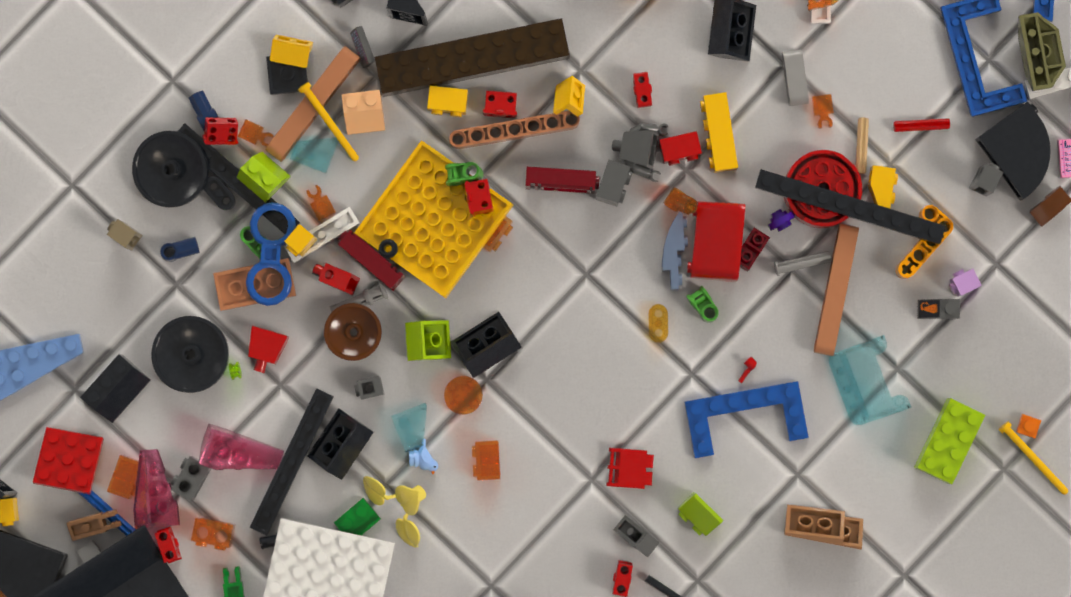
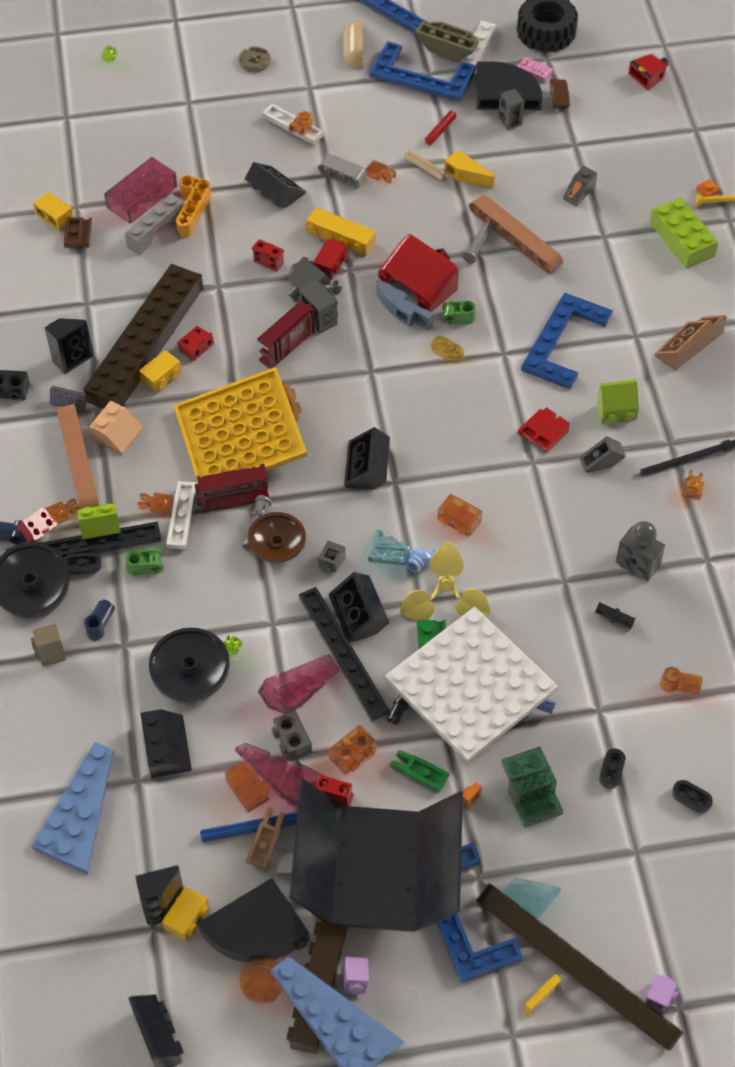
camera: 55 degrees left, 30 degrees down
(68, 460) = (193, 822): red plate -> none
(232, 285) = (176, 586): nougat plate -> none
(265, 347) = (232, 609): red torso -> none
(270, 254) = (164, 552): blue bar -> none
(285, 77) = (38, 461): black tile -> none
(290, 51) = (24, 444): yellow panel -> none
(300, 241) = (173, 518): yellow brick -> none
(315, 153) = (115, 482): clear light blue wing -> none
(328, 120) = (100, 450): yellow bar -> none
(341, 279) = (225, 521): red torso -> none
(382, 248) = (232, 465): black plate -> none
(428, 340) = (328, 496): lime slope -> none
(459, 173) = (224, 383): bright green piece -> none
(463, 395) = (393, 501): clear orange tile -> none
(478, 197) = (251, 382): red piece -> none
(507, 136) = (221, 346): nougat beam -> none
(570, 96) = (228, 296): yellow panel -> none
(622, 578) = (630, 484): red piece -> none
(680, 202) = (366, 280): clear orange piece -> none
(751, 364) = (527, 312): red hand -> none
(780, 220) = (436, 232): dark purple plate -> none
(826, 168) = (439, 211): red brick -> none
(850, 207) = (461, 184): black plate -> none
(863, 384) = (599, 252): clear light blue windscreen -> none
(922, 245) = (522, 155): light orange beam -> none
(964, 282) = (572, 162): lavender brick -> none

